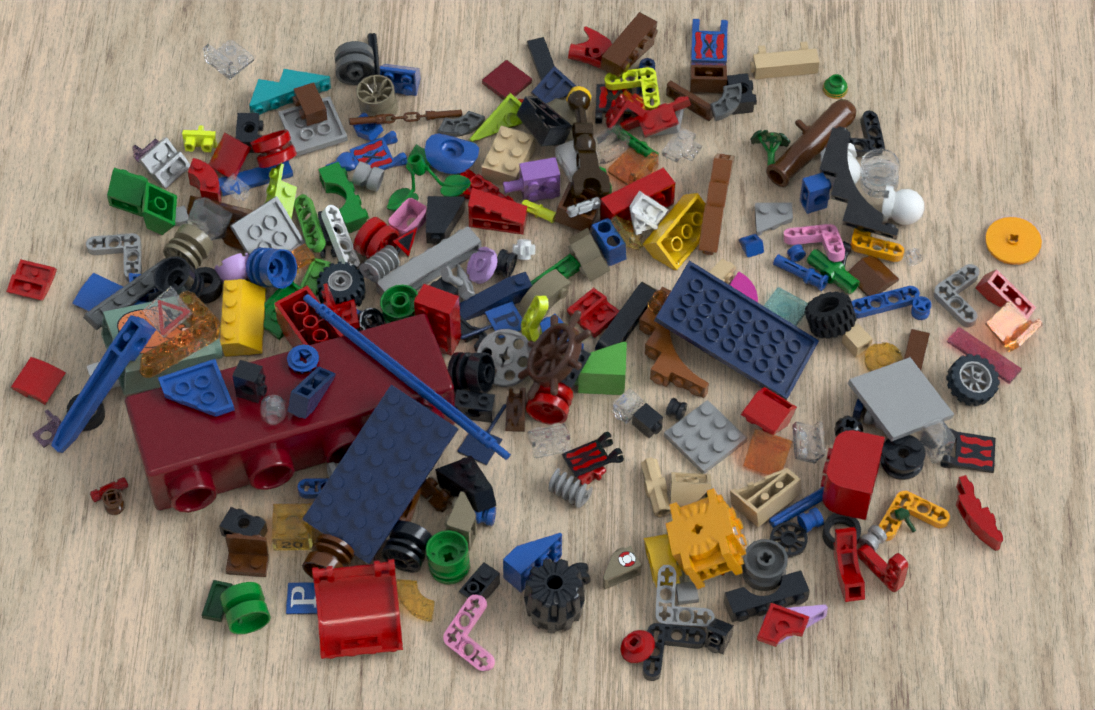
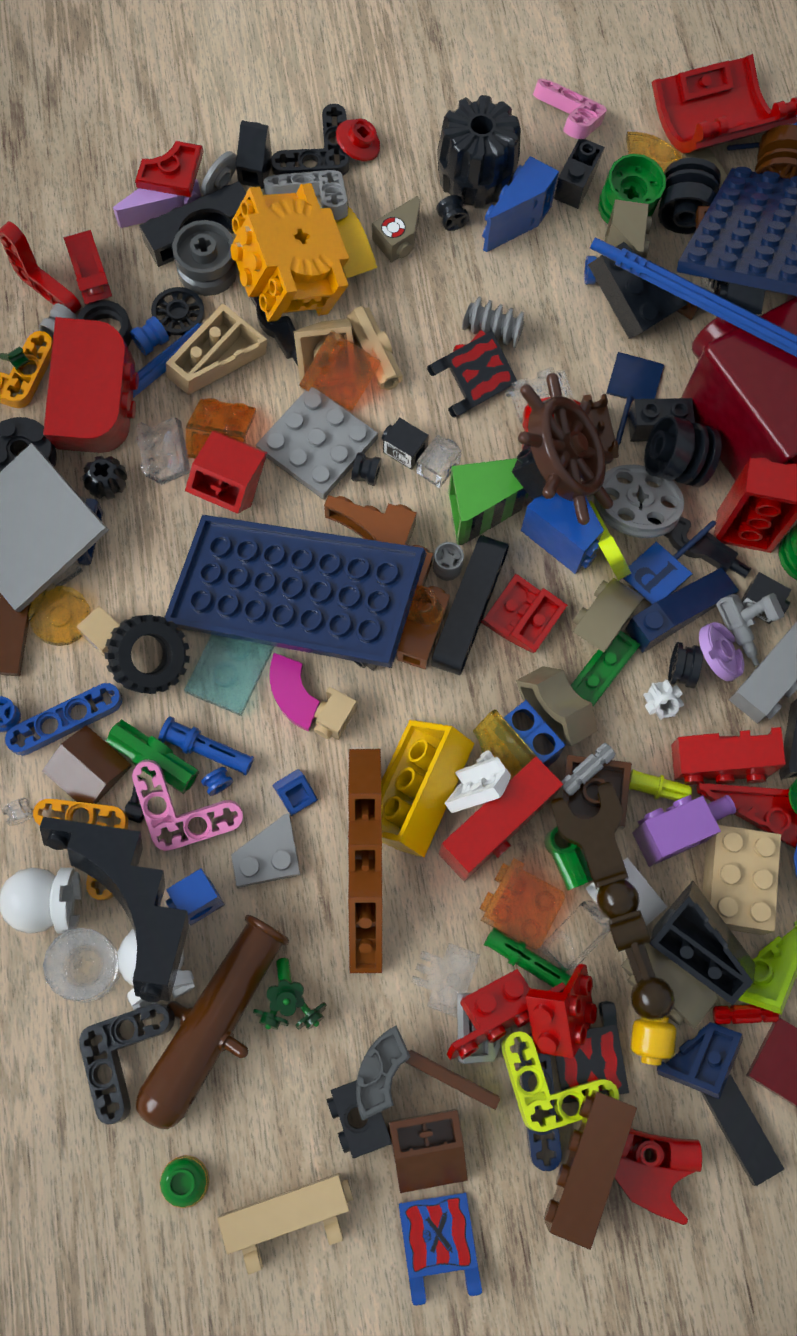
camera: 165 degrees right, 15 degrees up
(635, 346) = (450, 555): none -> light grey wheel
(687, 466) = (340, 370): none -> clear orange bracket
(746, 622) = (219, 173): none -> light grey wheel

